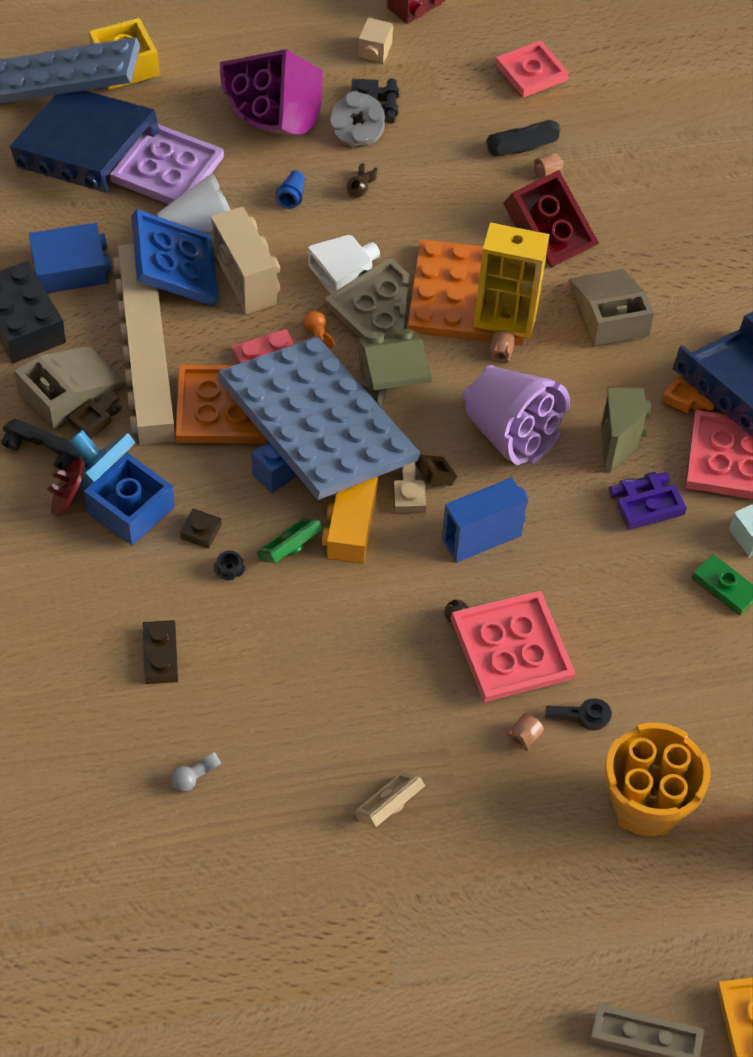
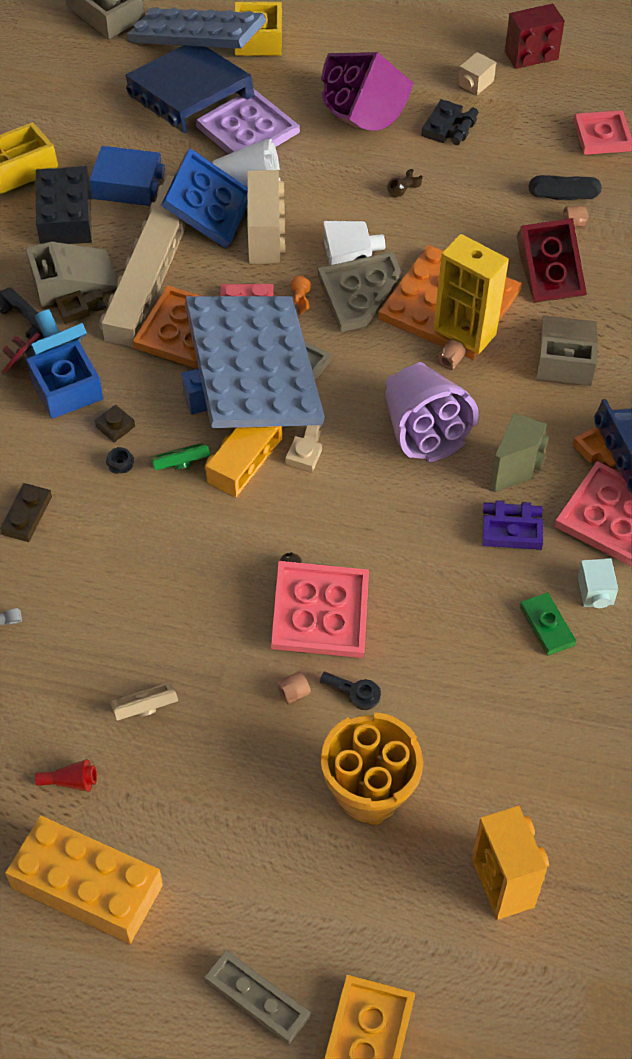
camera: 25 degrees right, 0 degrees up
(290, 191) = (338, 174): blue cone -> none
(359, 898) = (74, 776): none -> red cone
(361, 134) = (417, 122): light grey plate -> none
(393, 359) = (345, 334): olive slope -> none
(429, 991) = (85, 879): none -> light orange brick
(435, 470) = (336, 438): dark brown plate -> none
(484, 519) = (351, 492): blue brick -> none

